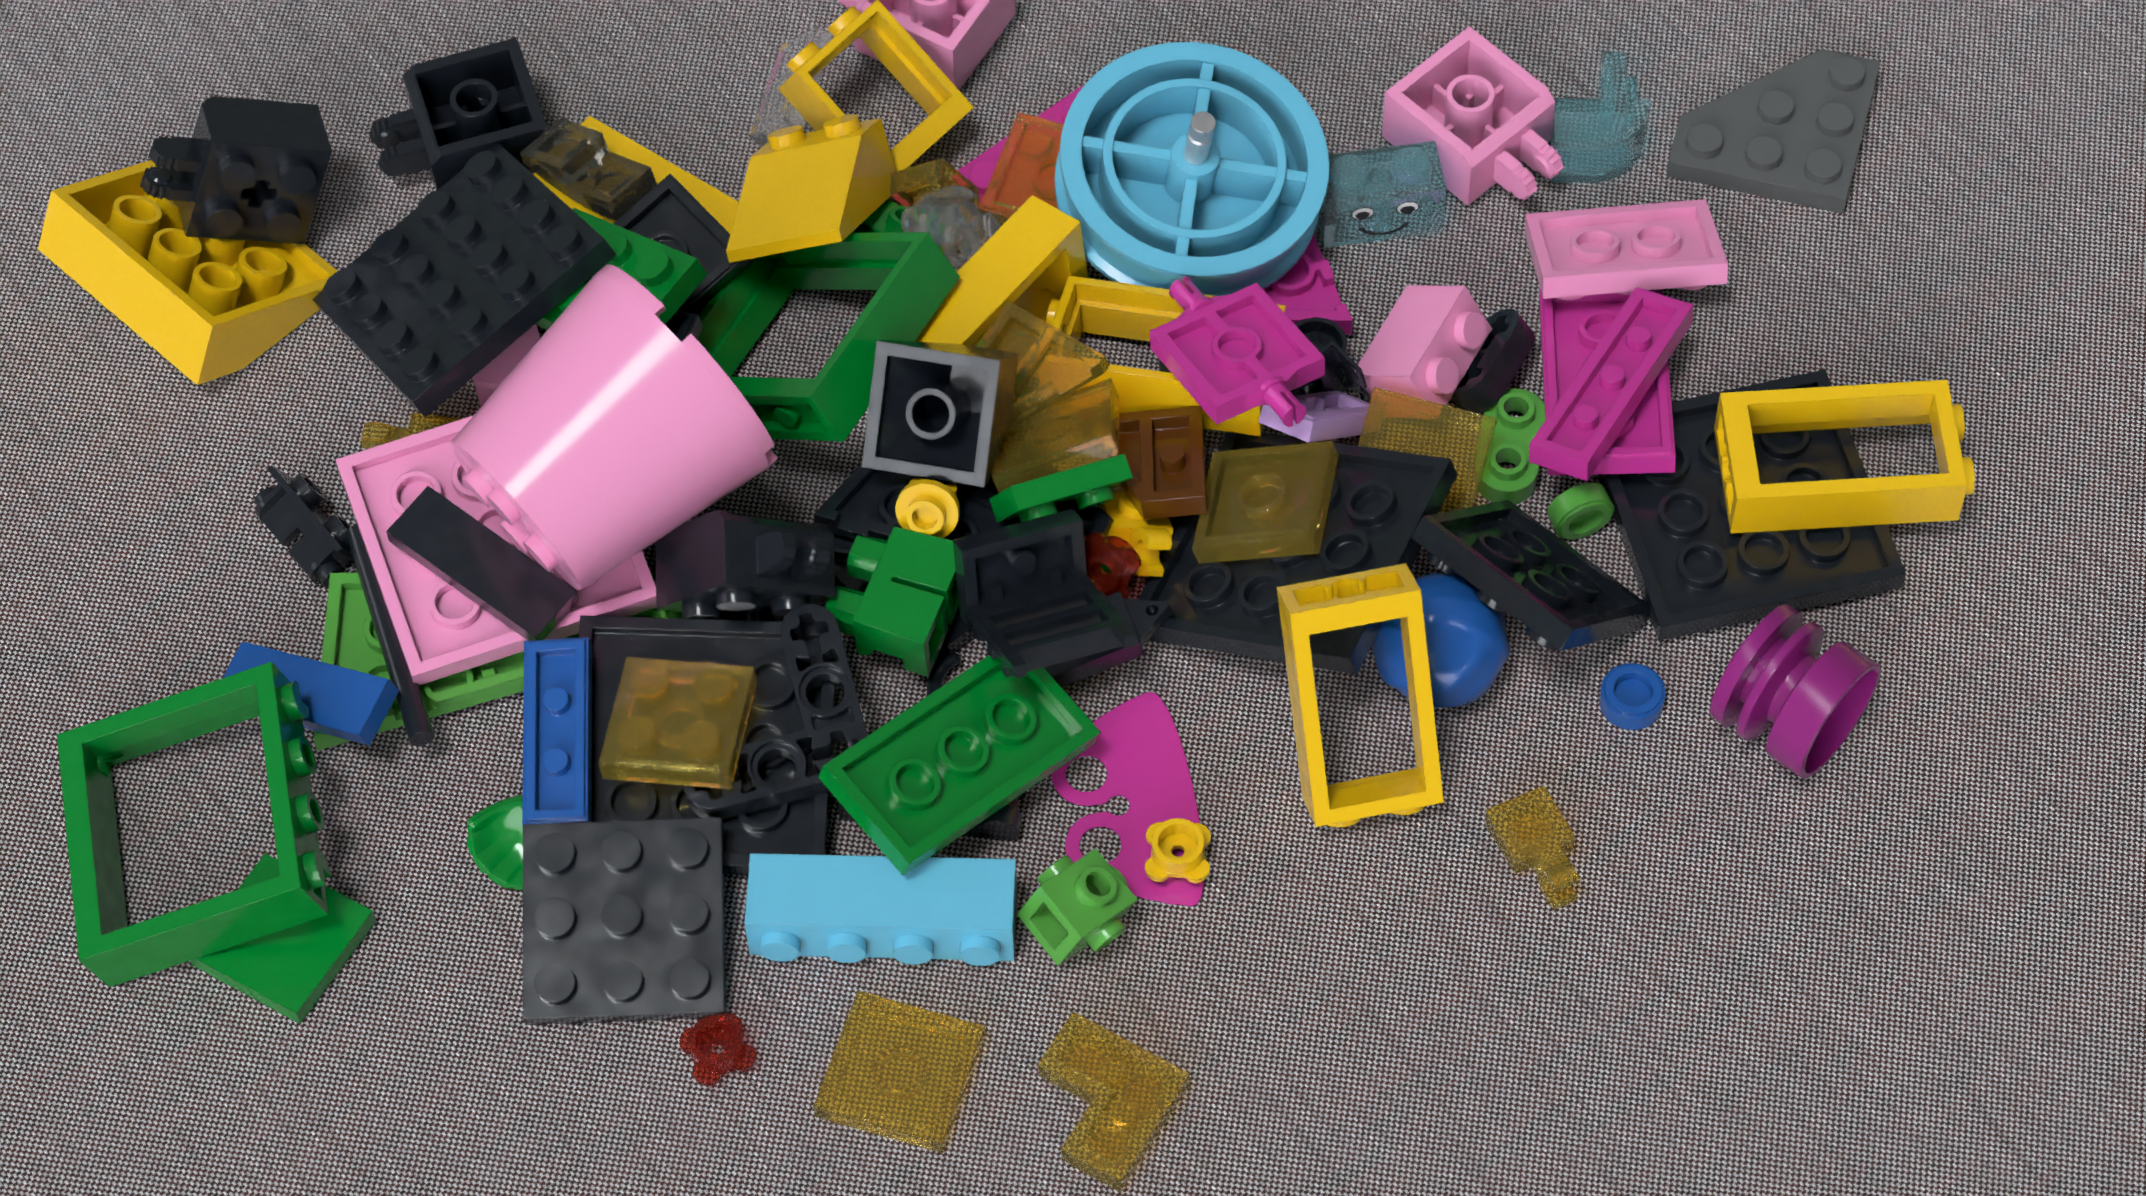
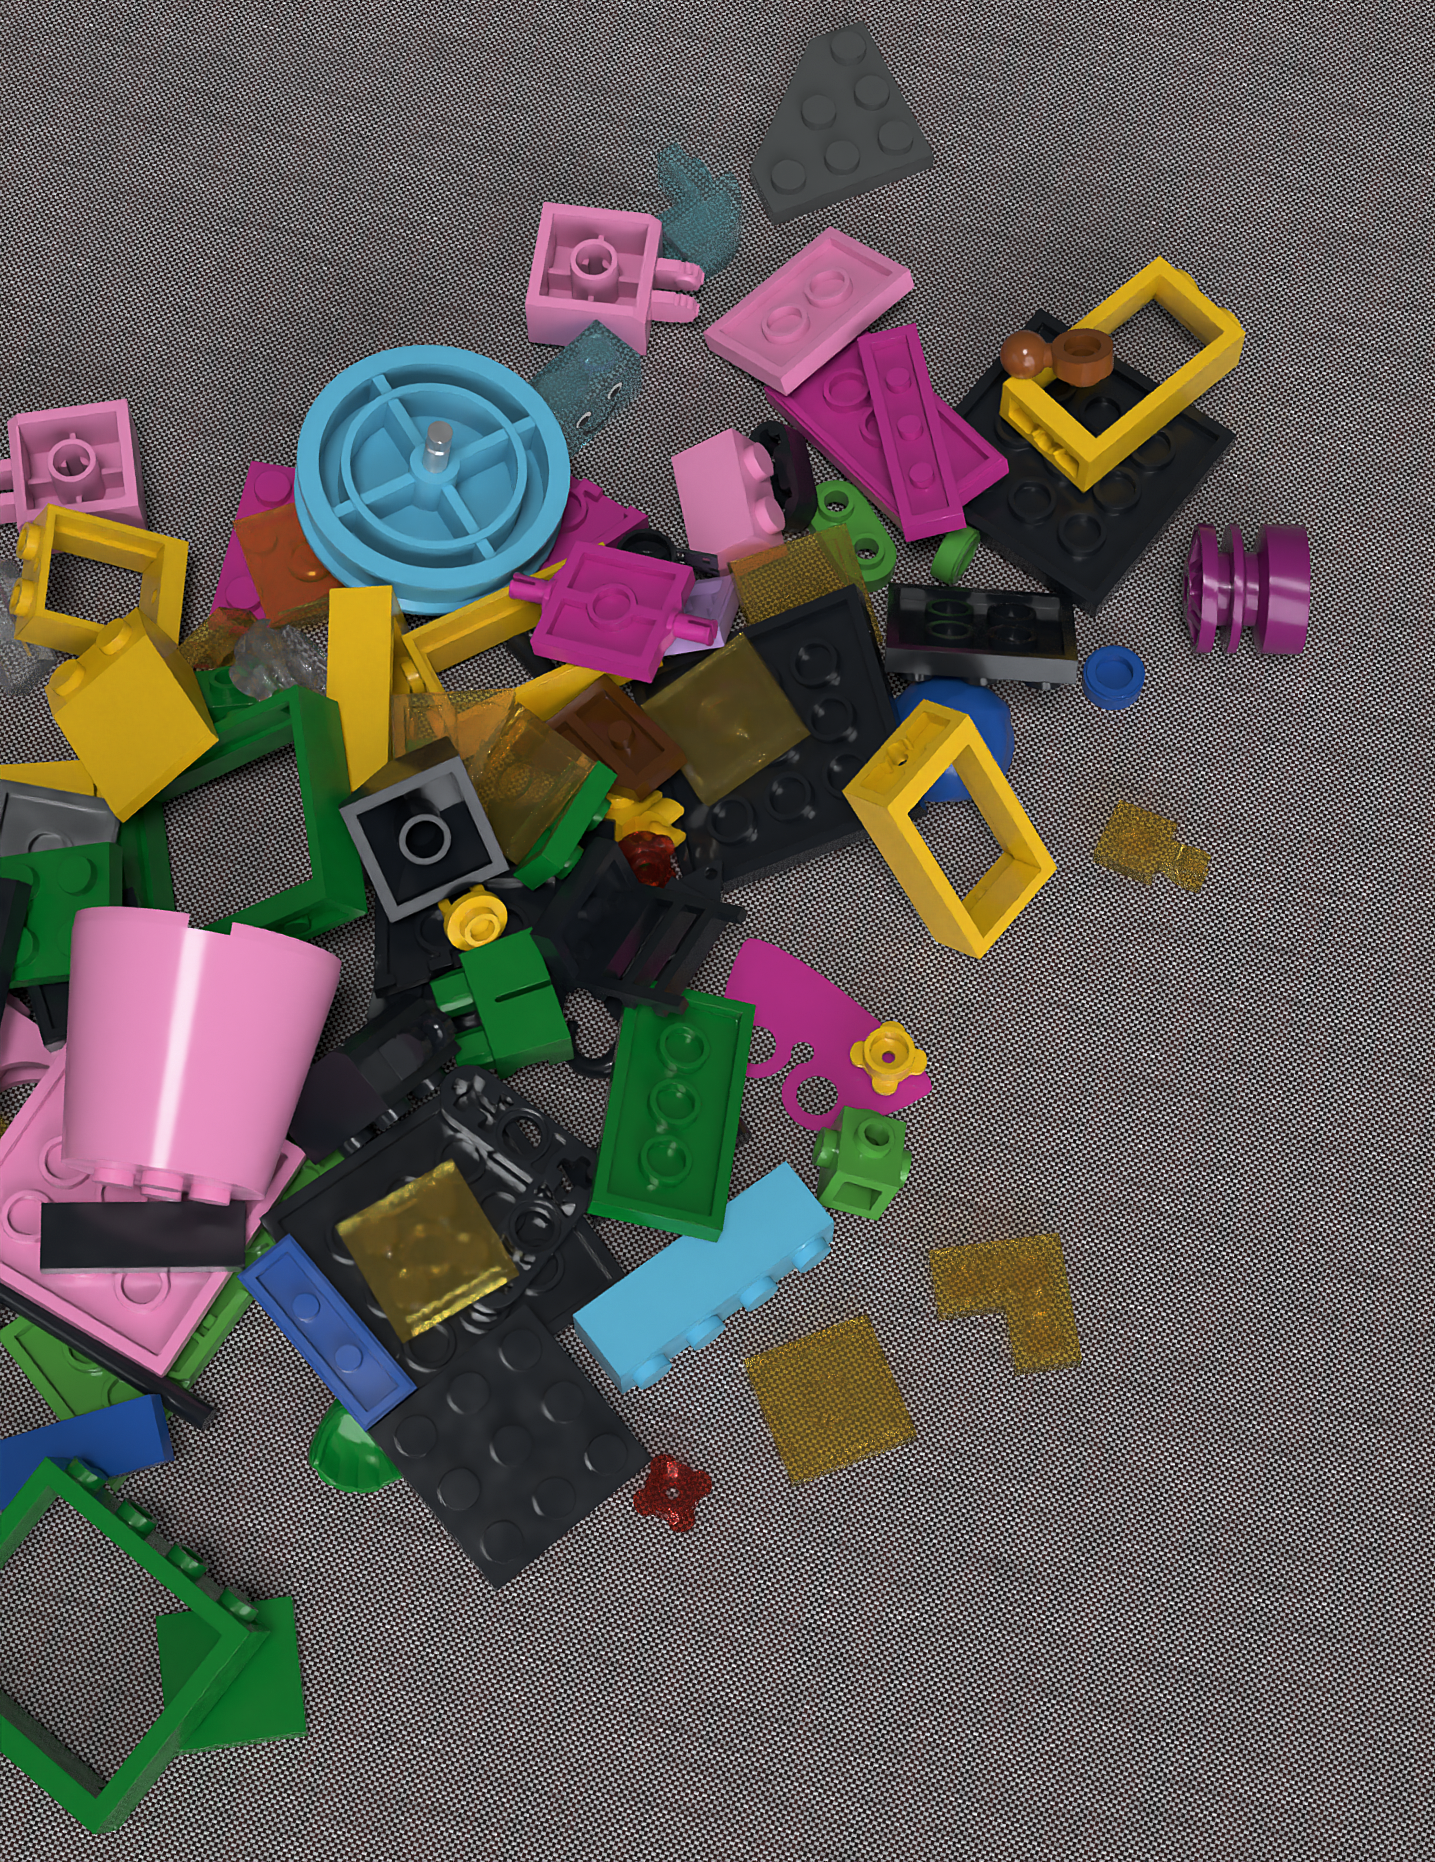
camera: 40 degrees left, 10 degrees up
(1793, 407) = (1075, 356): none -> dark orange plate

